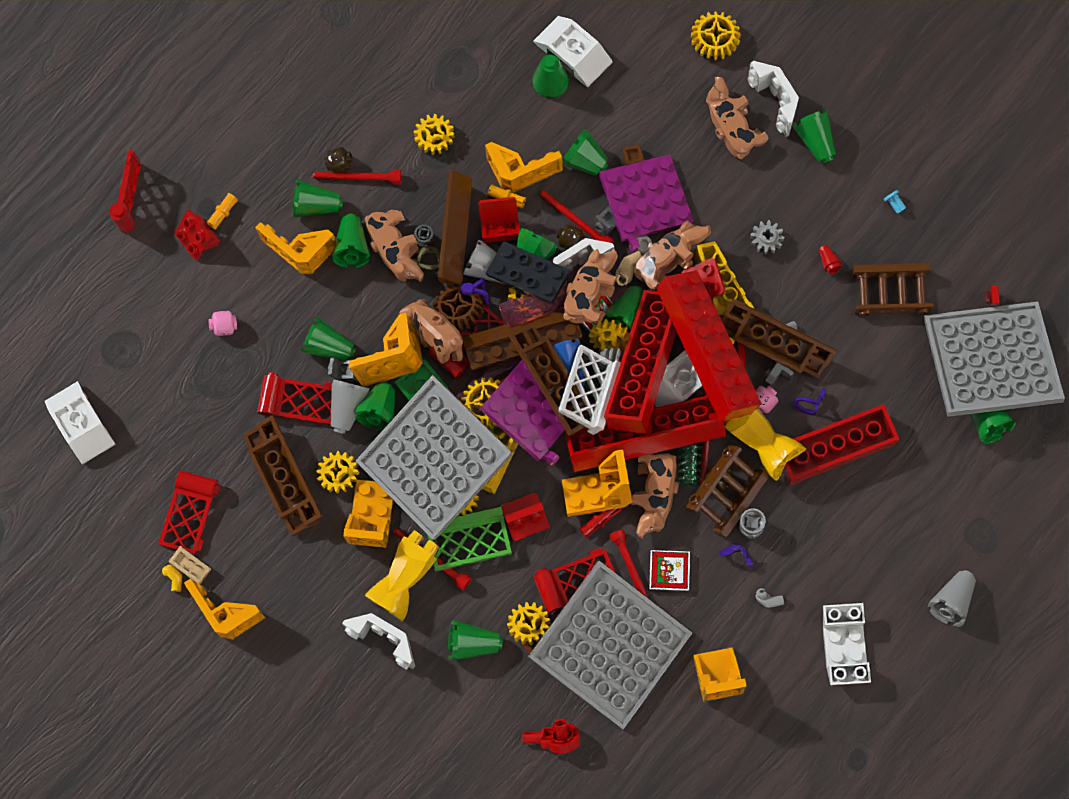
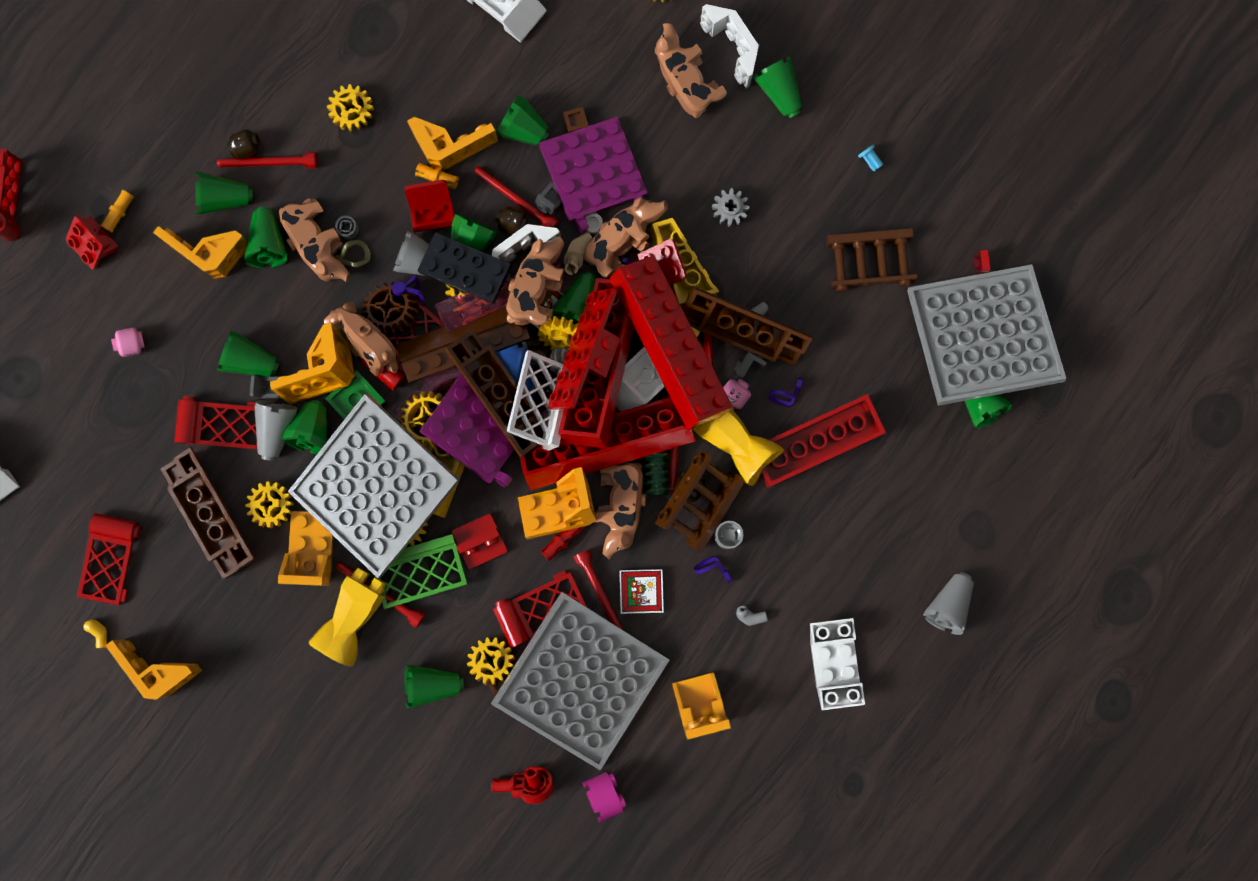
camera: 10 degrees left, 10 degrees up
(189, 565) = (113, 618): tan plate -> none
(360, 626) = (356, 705): white slope -> none
(455, 229) = (380, 219): reddish brown slope -> none
(550, 77) = (478, 34): green cone -> none
(626, 752) = (604, 797): none -> dark pink brick
(636, 346) = (590, 350): none -> red bracket
(830, 261) = (801, 230): red cone -> none

